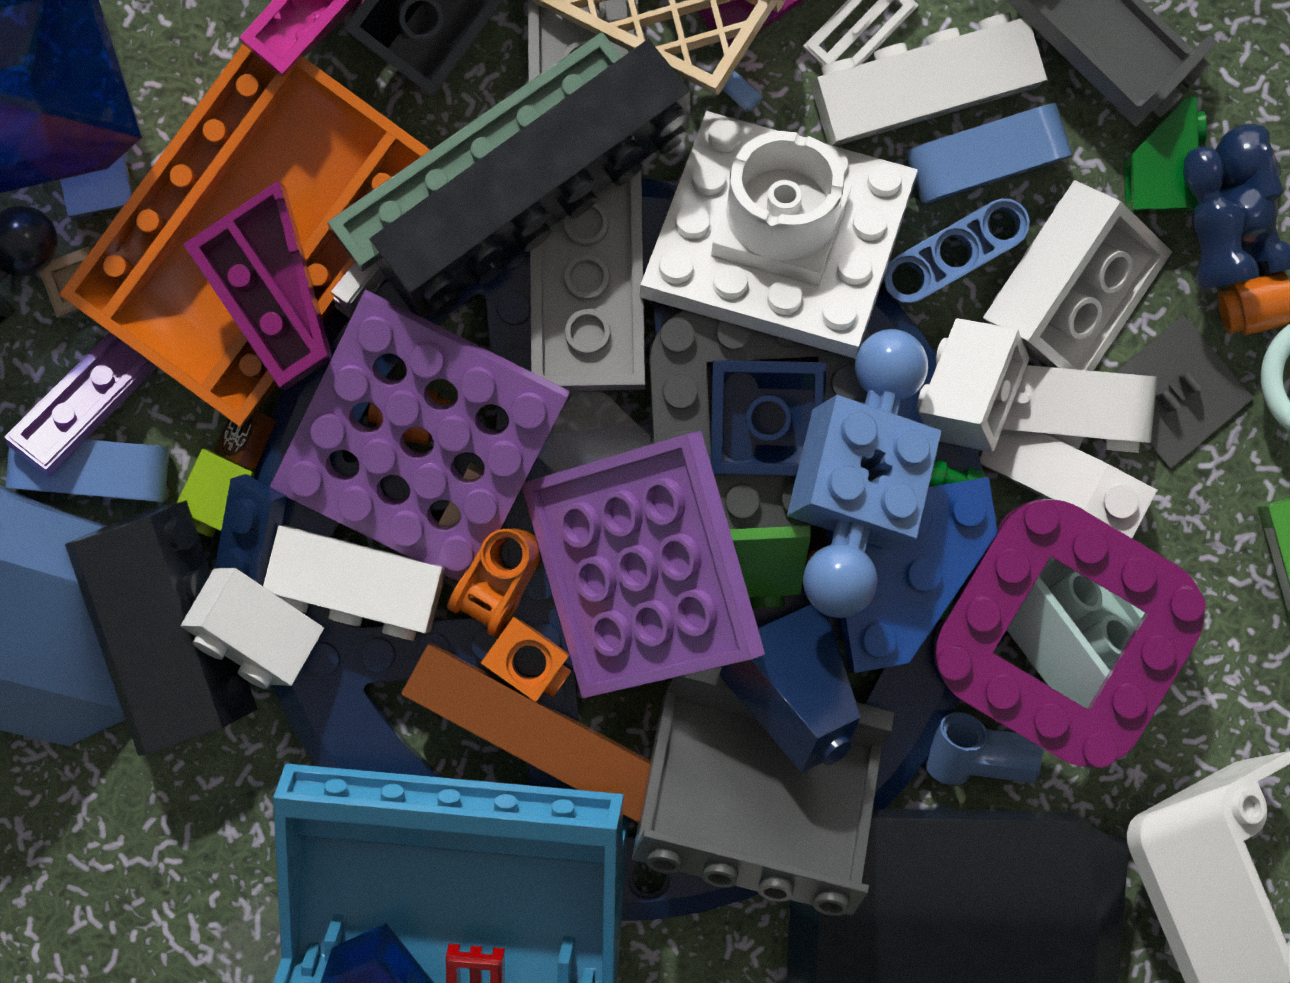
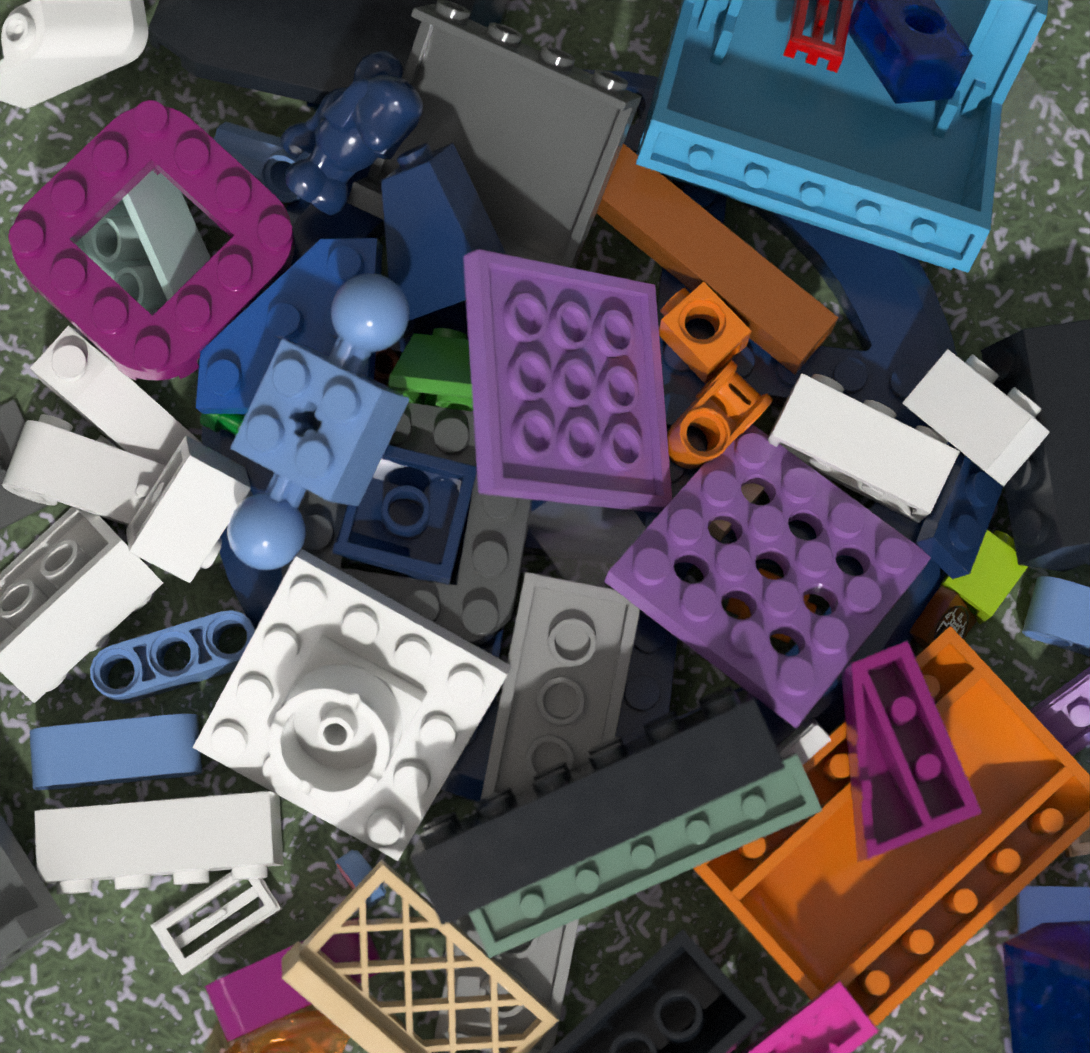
camera: 170 degrees left, 10 degrees down
(903, 776) = (351, 131): none -> dark blue animal

